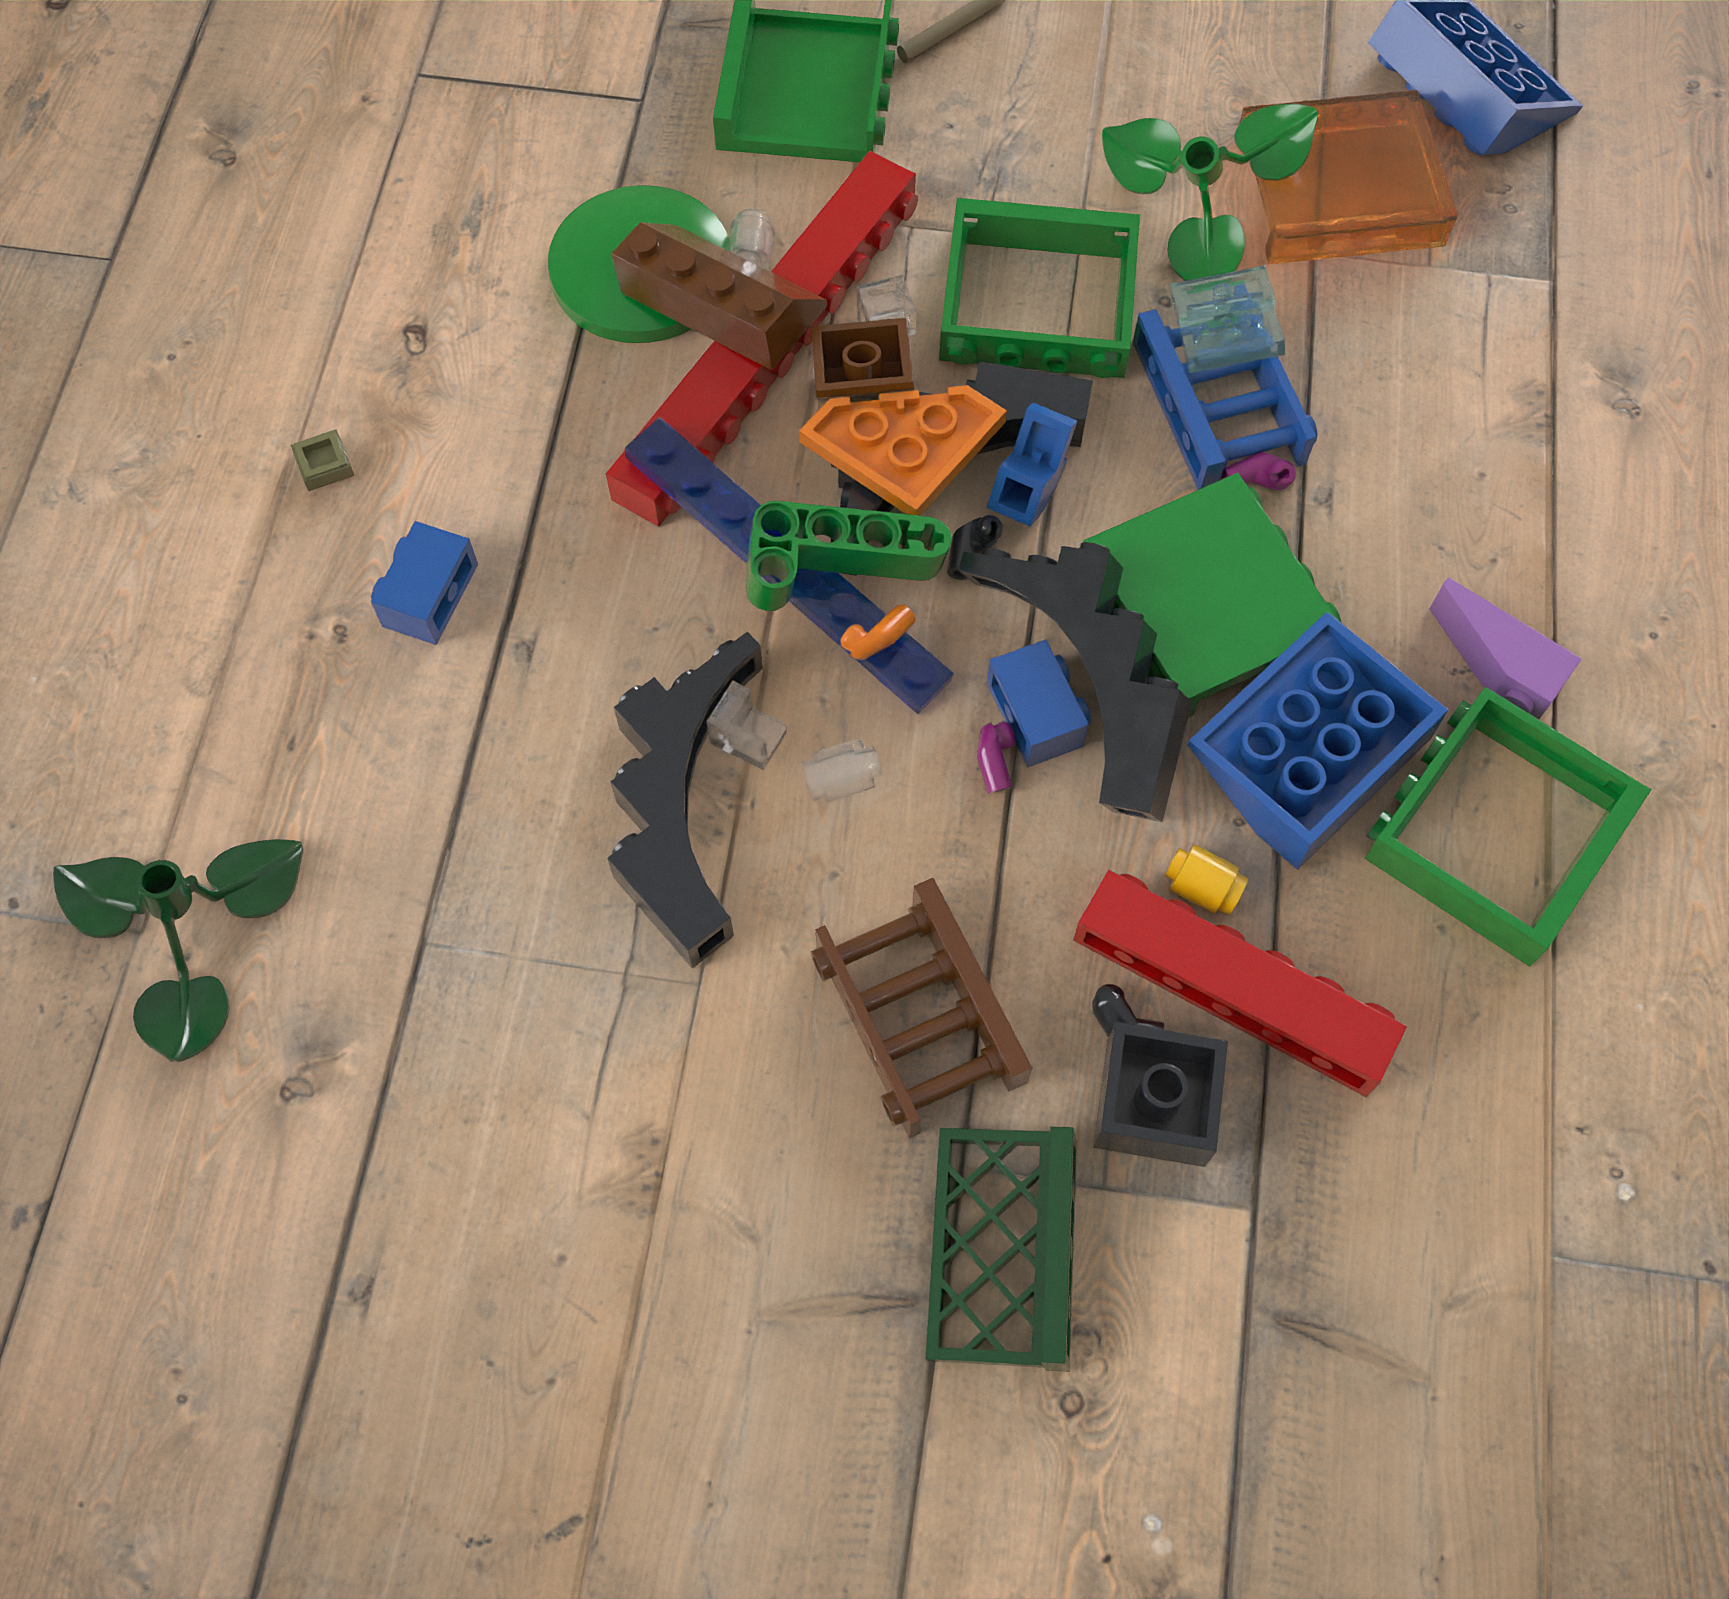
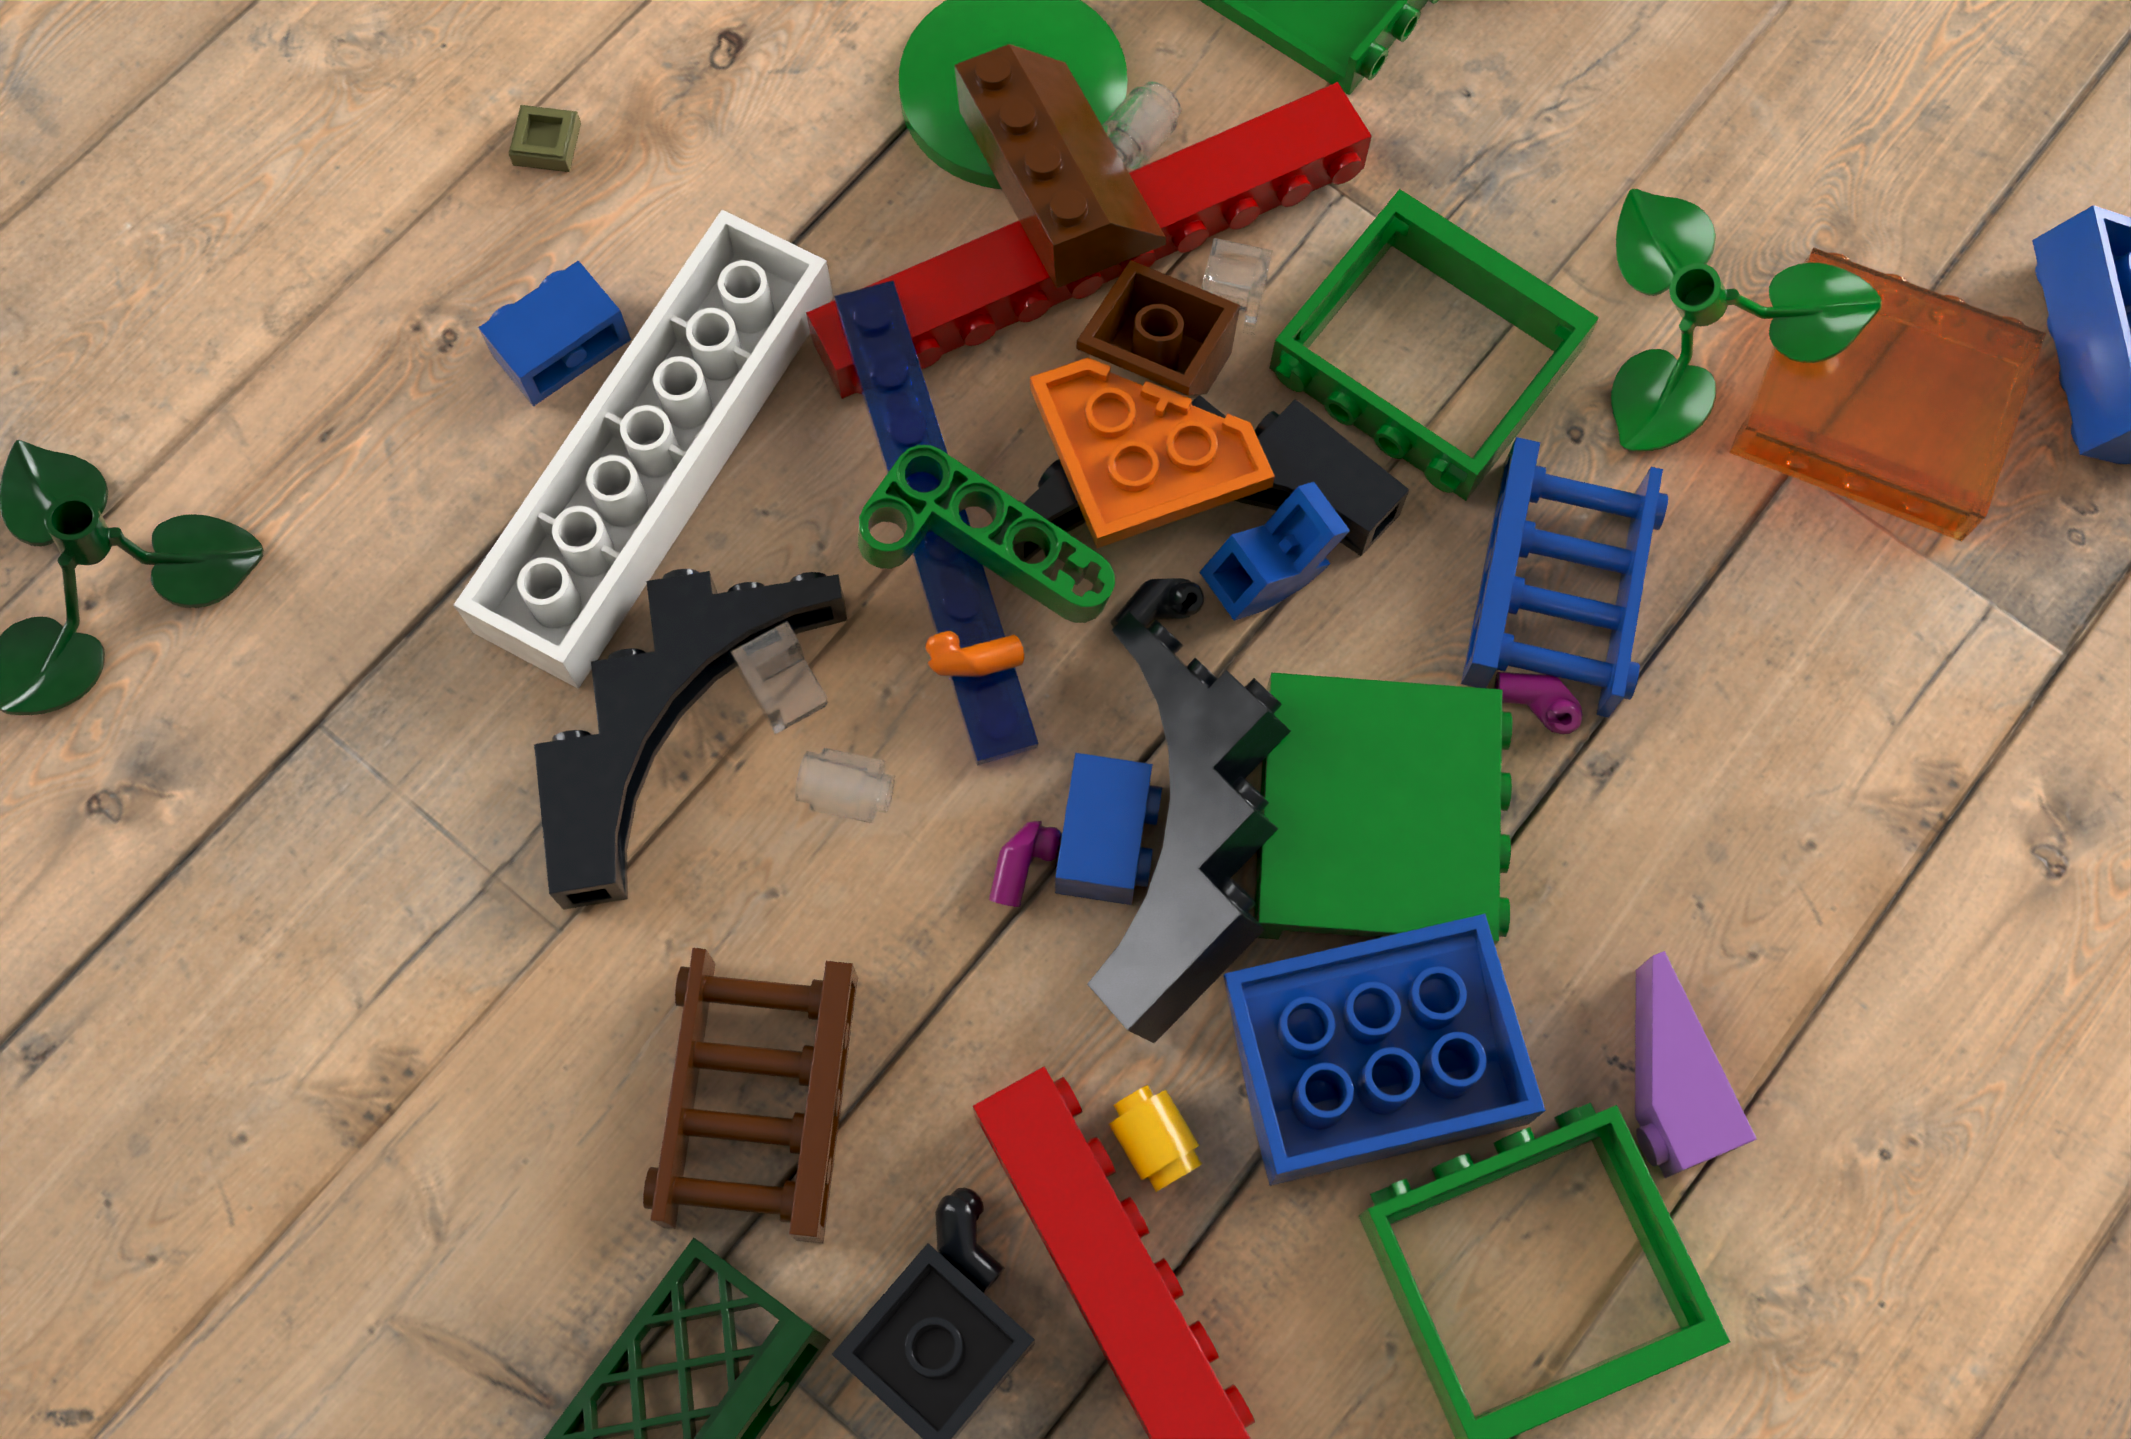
camera: 30 degrees right, 5 degrees up
(550, 625) = (646, 450): none -> white brick
(1227, 319) = (1612, 499): clear light blue slope -> none

